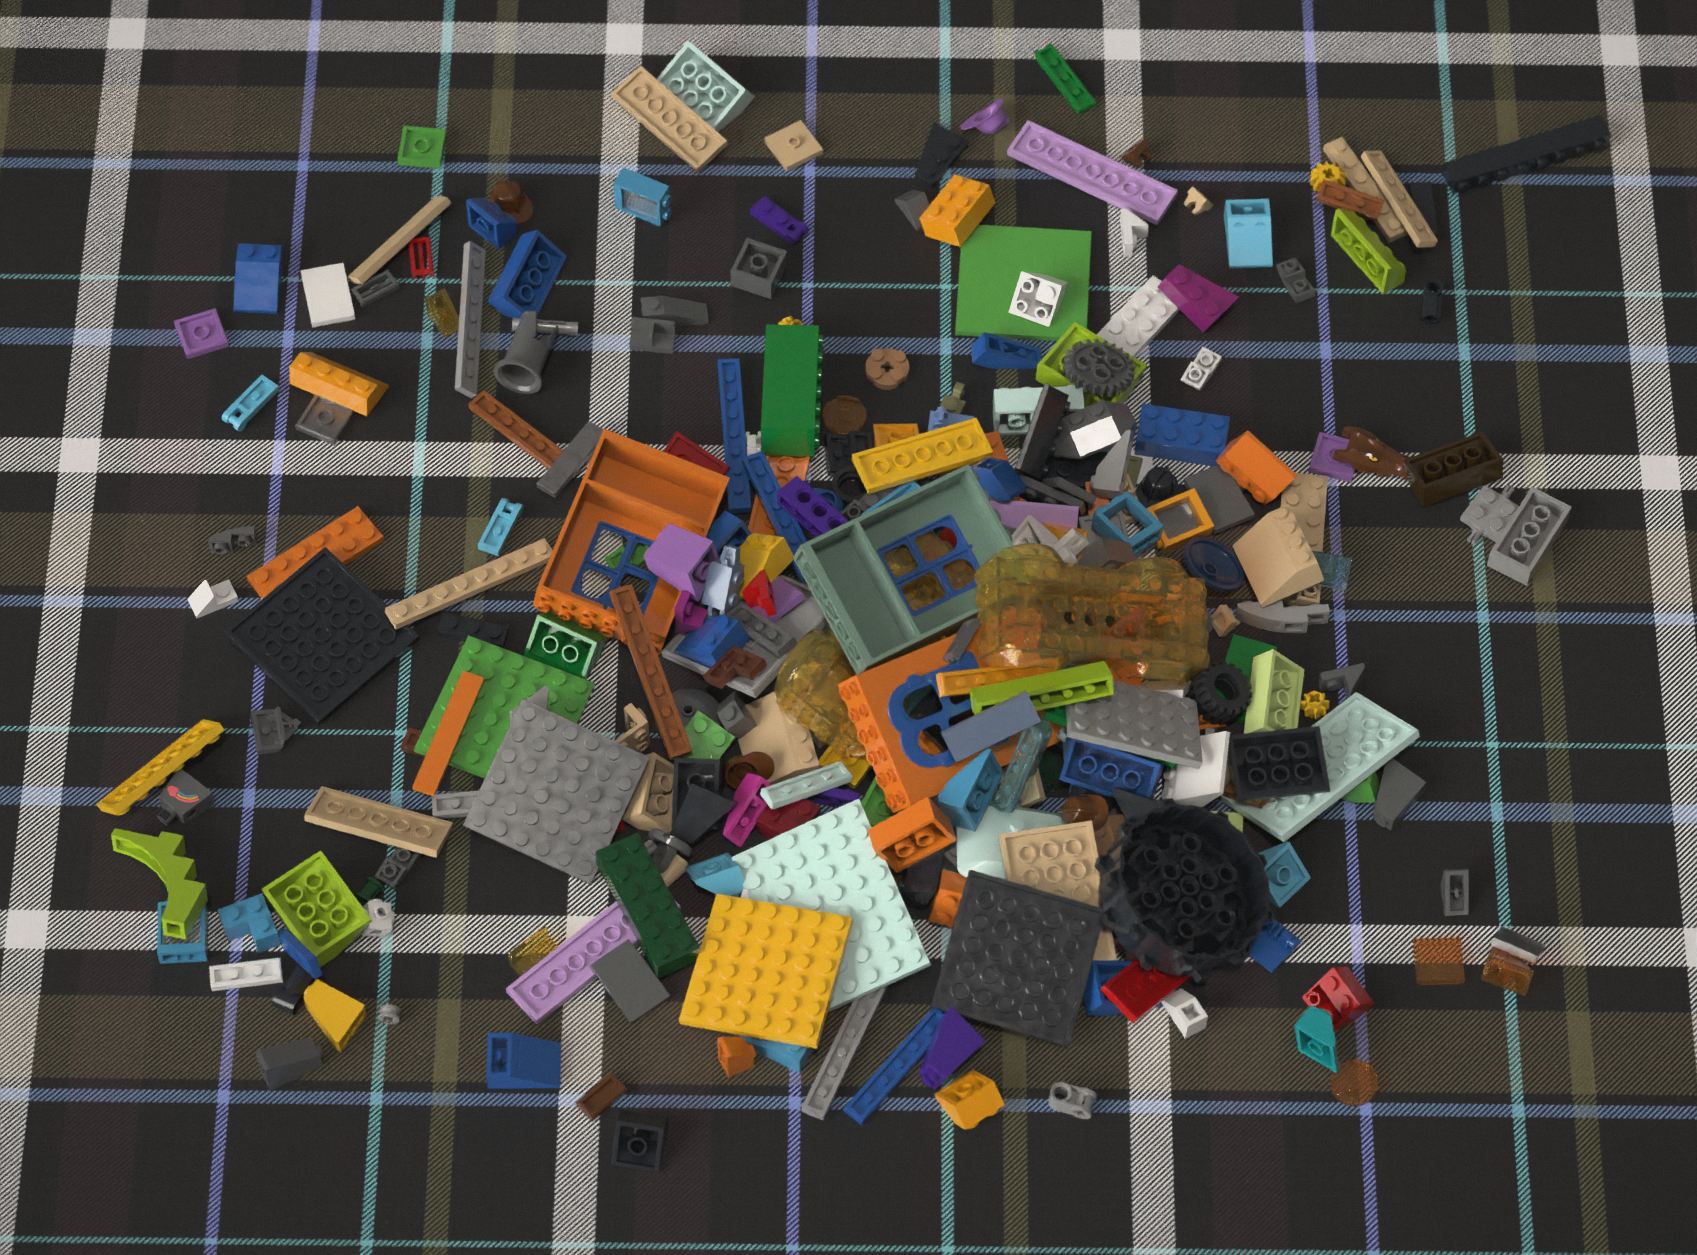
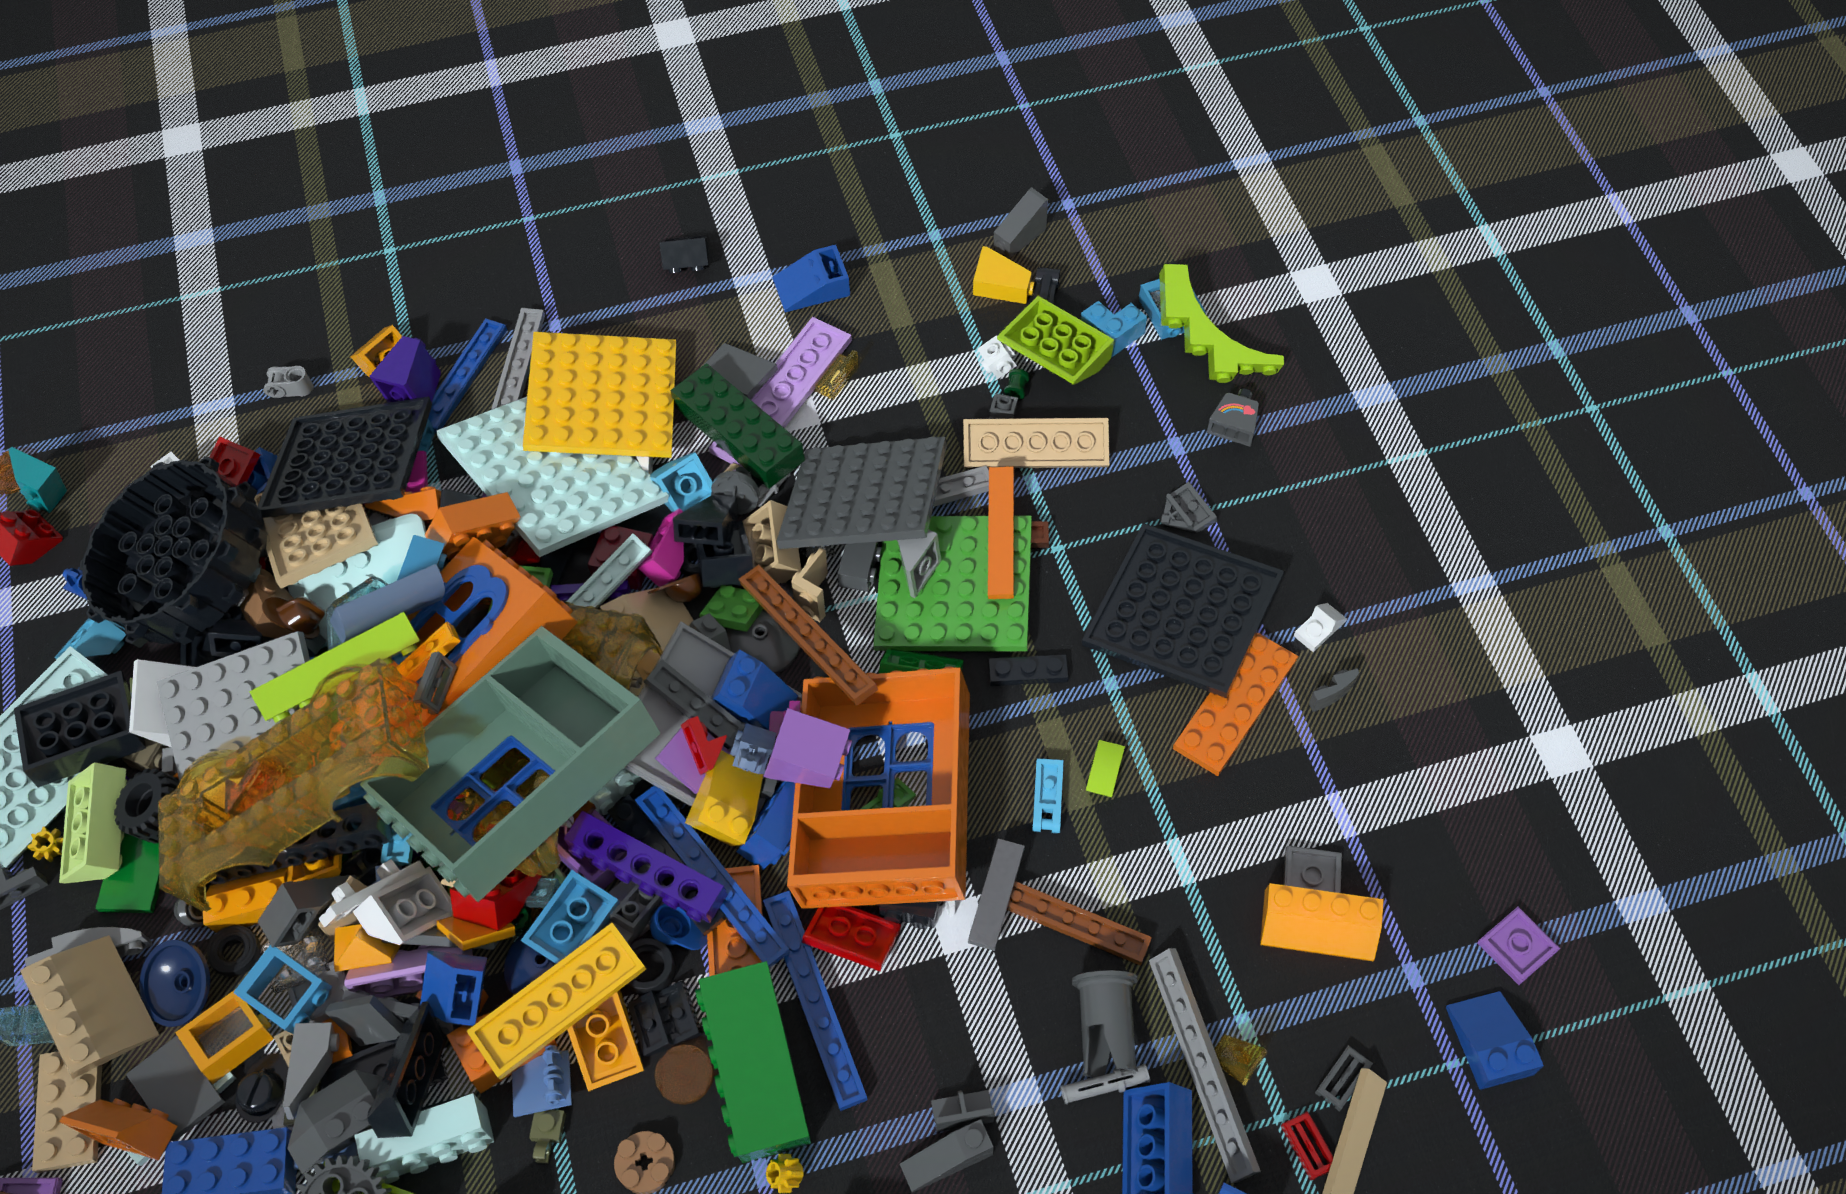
camera: 165 degrees right, 0 degrees up
(156, 770) = (1273, 432): yellow plate -> none
(246, 974) = (1103, 291): white tile -> none
(250, 402) = (1407, 866): medium azure plate -> none
(300, 953) = (1039, 287): blue tile -> none
(327, 295) = (1397, 1049): white tile -> none
(389, 1014) = (950, 291): light grey bush -> none
(445, 533) = (1105, 768): none -> lime slope
(469, 584) = (1050, 714): tan plate -> none
(601, 1097) = (732, 282): reddish brown tile -> none
(734, 662) = (710, 655): copper plate -> none
(735, 1054) = (616, 322): orange slope -> none
(753, 443) = (782, 979): white plate -> none
(1224, 620) = (161, 921): tan tile -> none

